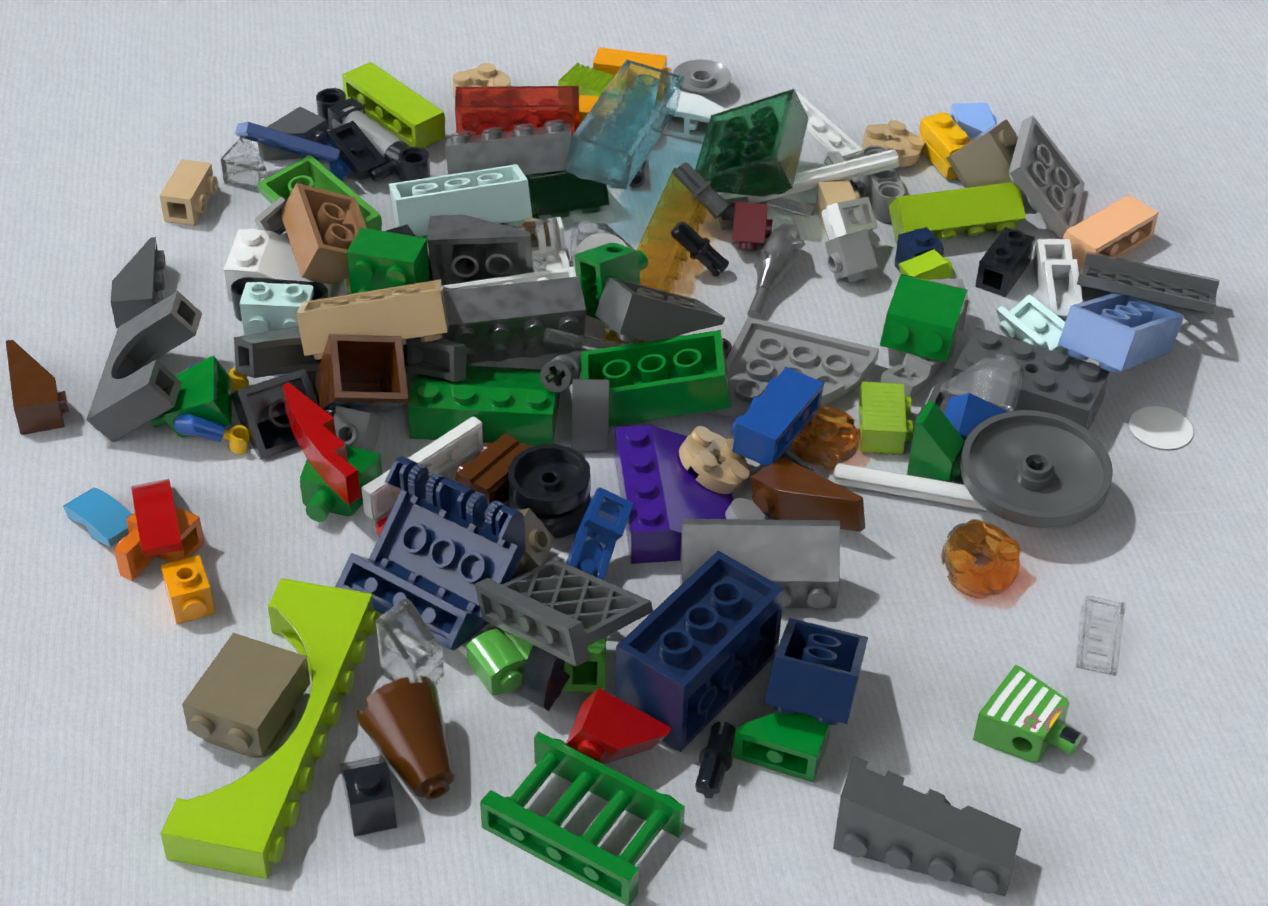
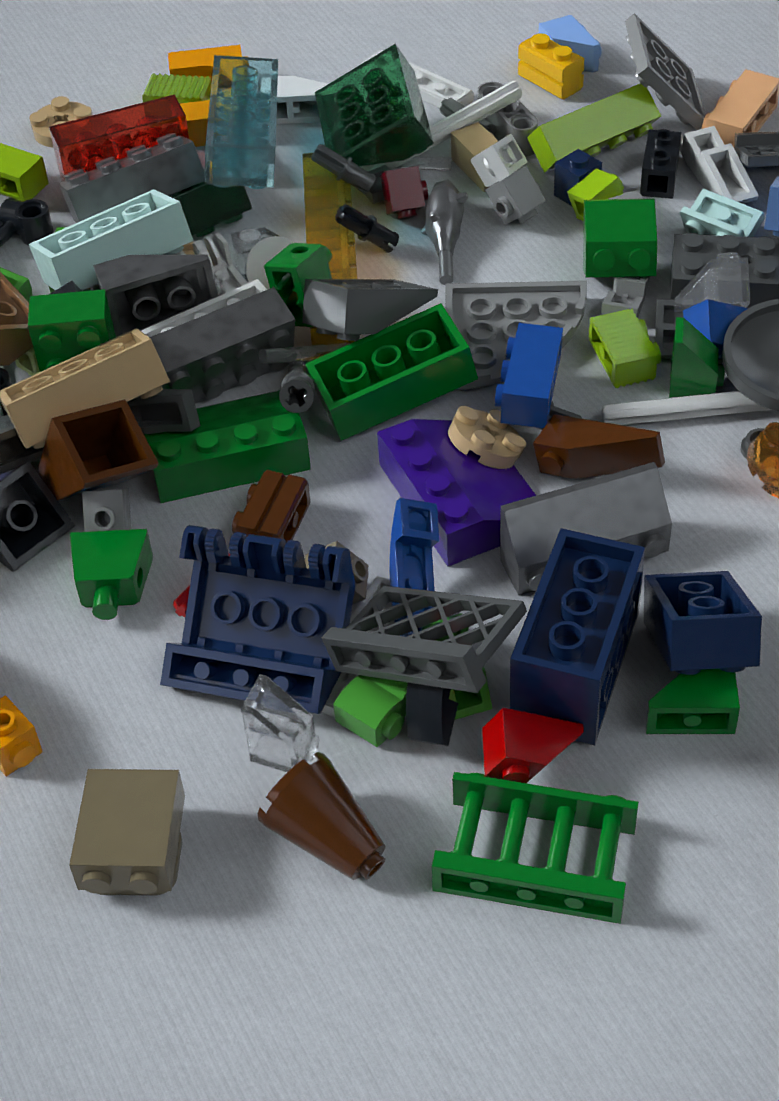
camera: 15 degrees left, 5 degrees up
(246, 821) = (188, 969): lime arch -> none
(318, 440) = (91, 543): red slope -> none
(369, 795) = (304, 893): black slope -> none
(438, 457) = (206, 512): white tile -> none
(553, 485) = (339, 507): black wheel -> none
(590, 414) = (343, 426): dark grey slope -> none
(703, 76) = (291, 55): light grey dish -> none
(715, 759) = (635, 743): black axle -> none
(744, 509) = (538, 481): light grey tile -> none
(829, 451) = (594, 384): clear orange plate -> none
(895, 138) = (496, 70): tan plate -> none
(986, 157) = (602, 66): dark tan slope -> none

